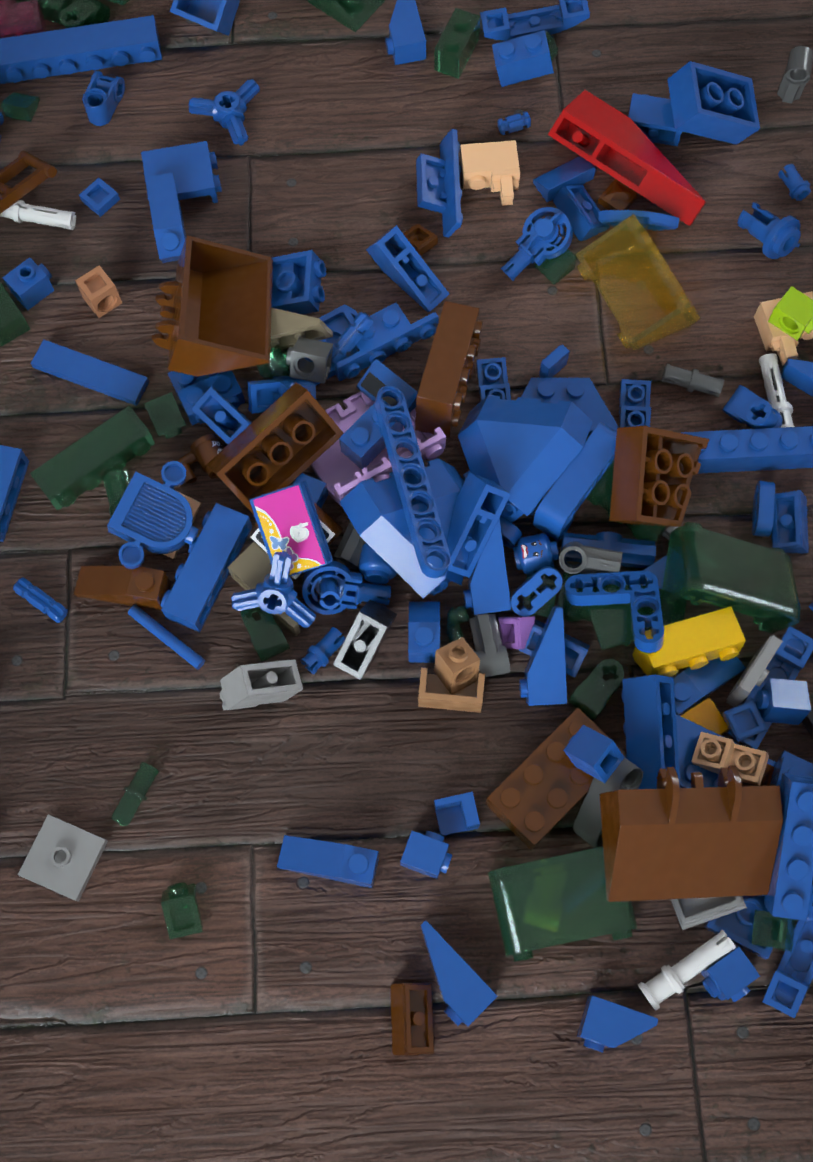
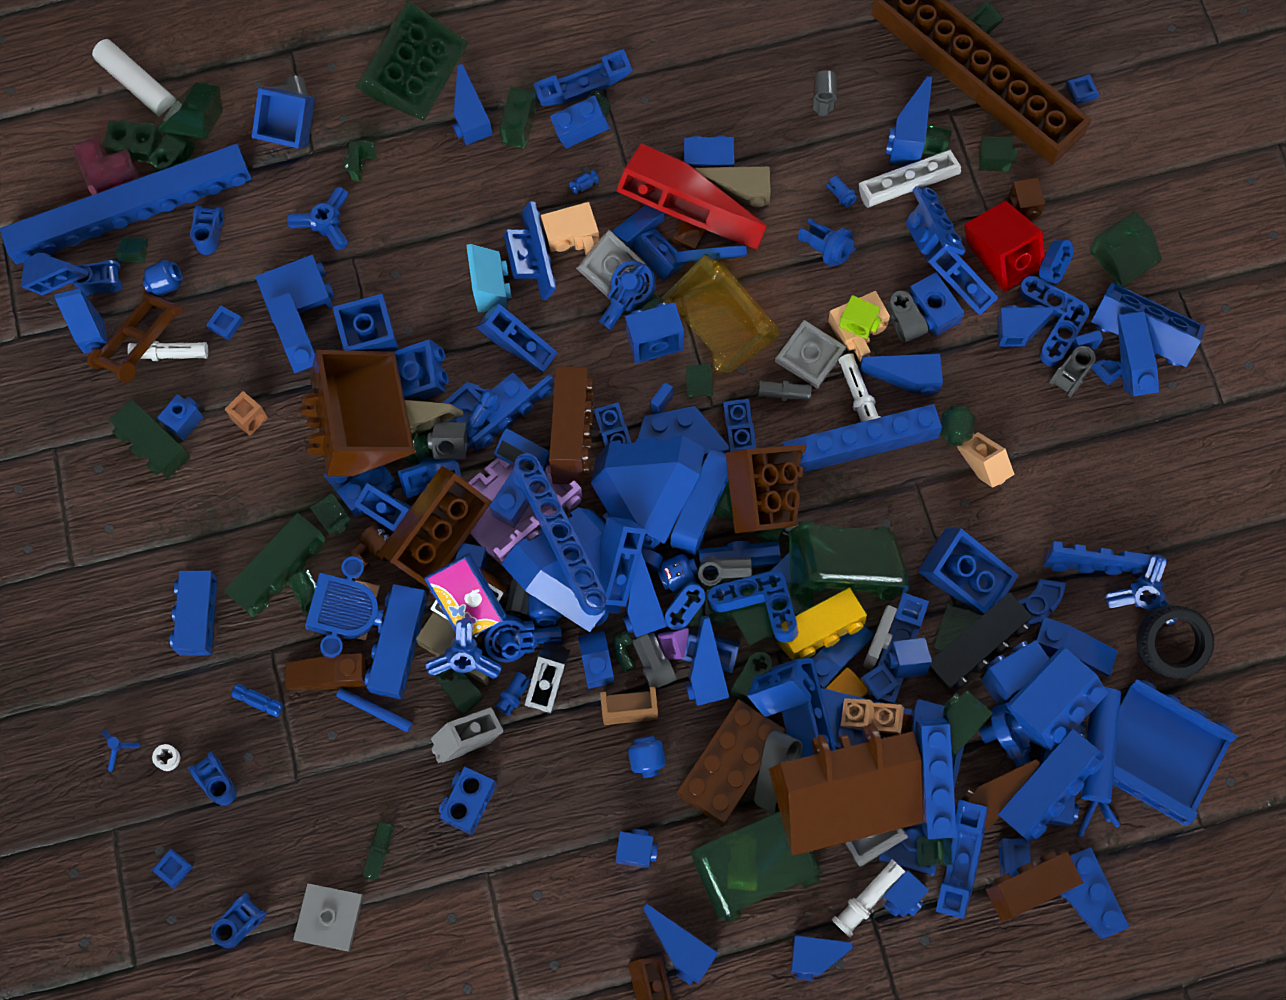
camera: 10 degrees left, 0 degrees up
(44, 138) = (162, 278): none -> blue head
(90, 372) = (253, 487): blue tile -> none
(181, 910) = (440, 939): clear green bracket -> none
(247, 223) = (365, 325): none -> blue brick
(254, 763) = (475, 803): none -> blue brick
(278, 49) = (357, 152): none -> clear green bracket
(329, 860) = (555, 872): blue slope -> none
(389, 198) = (487, 277): none -> medium azure slope
(421, 238) = (521, 307): reddish brown tile -> none
(456, 665) = (629, 684): medium nougat brick -> none
(456, 814) = (655, 810): blue panel -> none
(459, 751) = (646, 756): none -> blue head
(517, 205) = (604, 259): none -> light grey plate
(561, 289) = (654, 332): none -> blue brick
(594, 753) = (758, 736): blue brick -> none
(599, 351) = (699, 380): none -> clear green slope
(630, 705) = (780, 689): none -> blue hinge
(690, 154) = (744, 184): none -> dark tan slope
(713, 103) = (756, 136): blue brick -> none
(729, 346) = (810, 354): none -> light grey plate
(752, 410) = (840, 409): blue piece -> none
(763, 509) = (865, 493): blue beam -> none
(790, 522) = (890, 500): blue slope -> none

